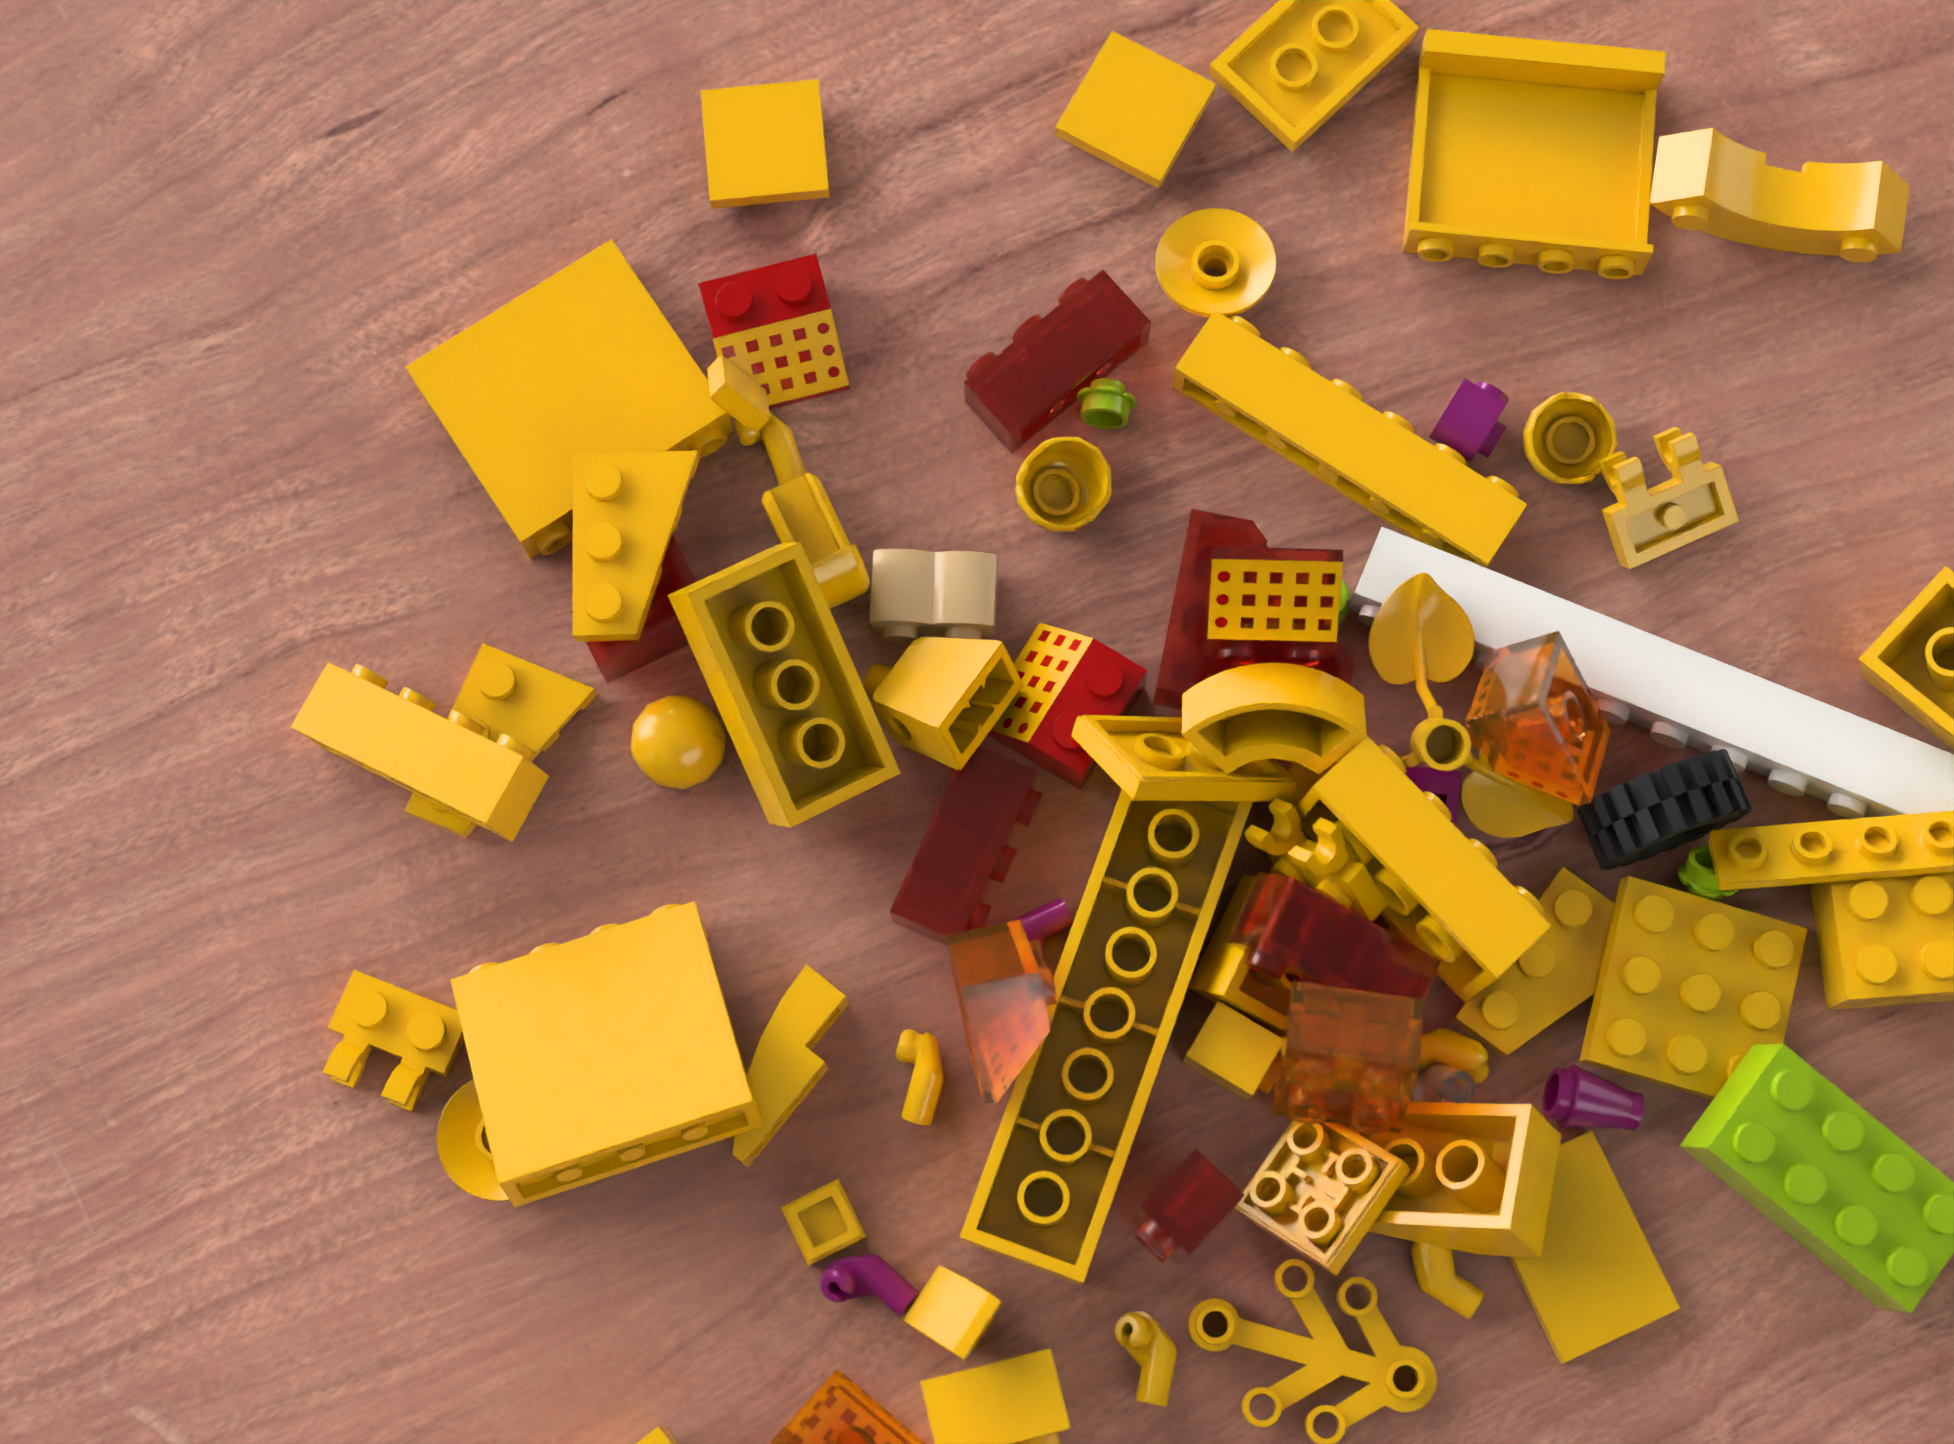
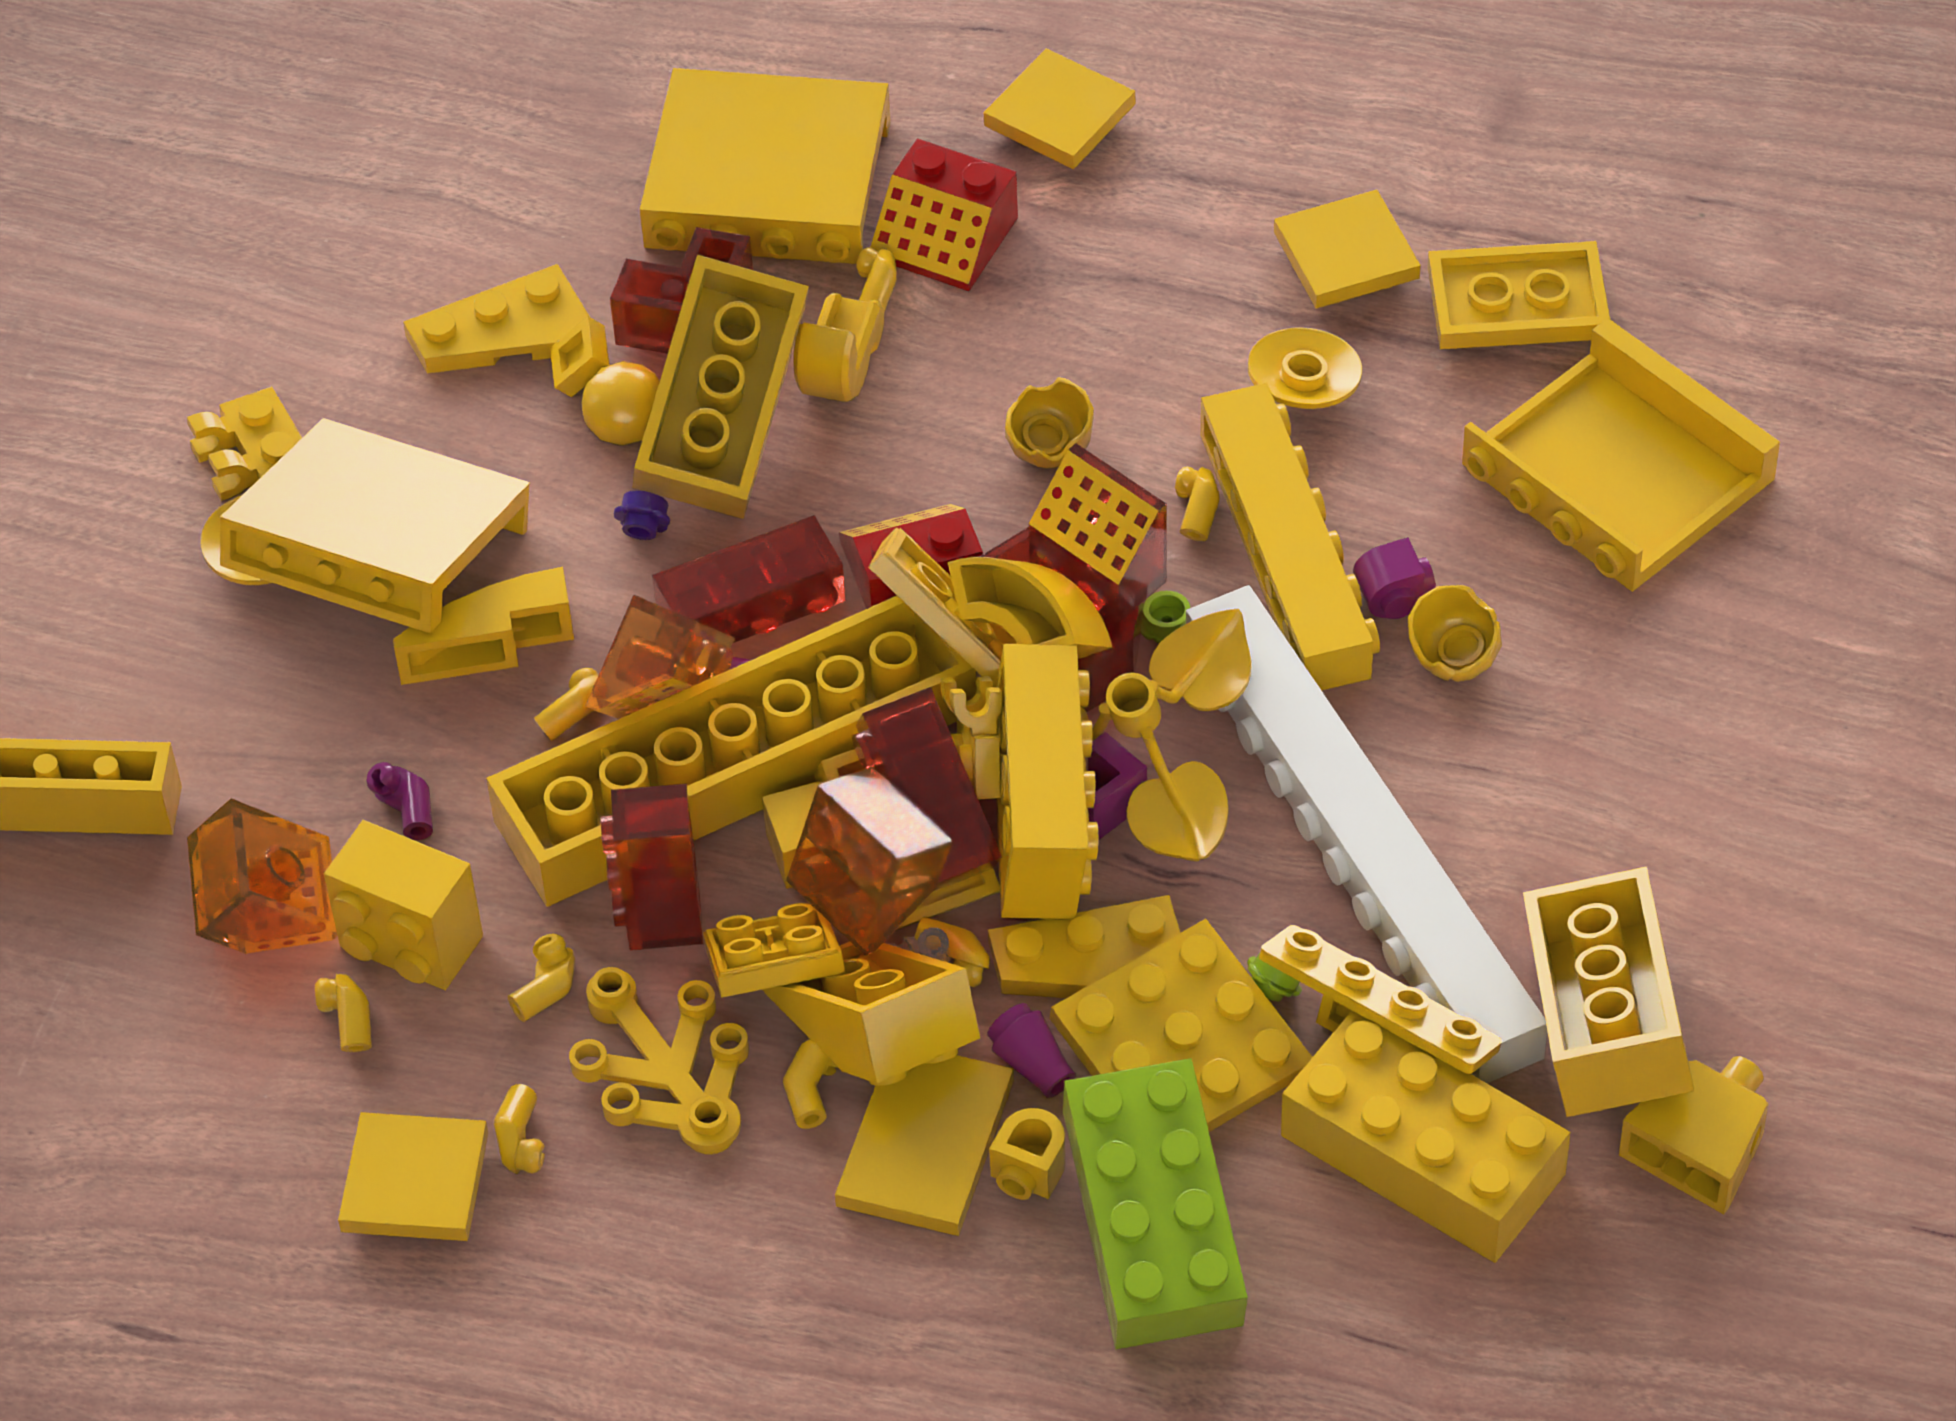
camera: 40 degrees right, 25 degrees down
(421, 750) = (448, 279): yellow brick -> none
(598, 726) = (579, 356): none -> yellow plate
(620, 536) = (712, 220): yellow wing -> none
(738, 394) = (877, 220): yellow tile -> none
(802, 843) = (642, 514): none -> dark purple plate
(823, 1222) = (416, 744): yellow tile -> none
(933, 594) = (890, 432): tan brick -> none
(944, 695) = (819, 481): yellow torso -> none
(953, 1312) = (435, 813): yellow slope -> none
(1054, 359) = (1130, 353): clear red brick -> none
(1106, 404) = (1136, 405): lime plate -> none
(1244, 454) = (1203, 501): none -> yellow arm
(1539, 719) = (1234, 759): clear orange slope -> none
(1664, 809) = (1268, 875): black tyre -> none
(1671, 513) = (1485, 732): yellow plate -> none
(1684, 1202) = (1028, 1154): none -> yellow plate
(1822, 210) = (1749, 574): yellow brick -> none

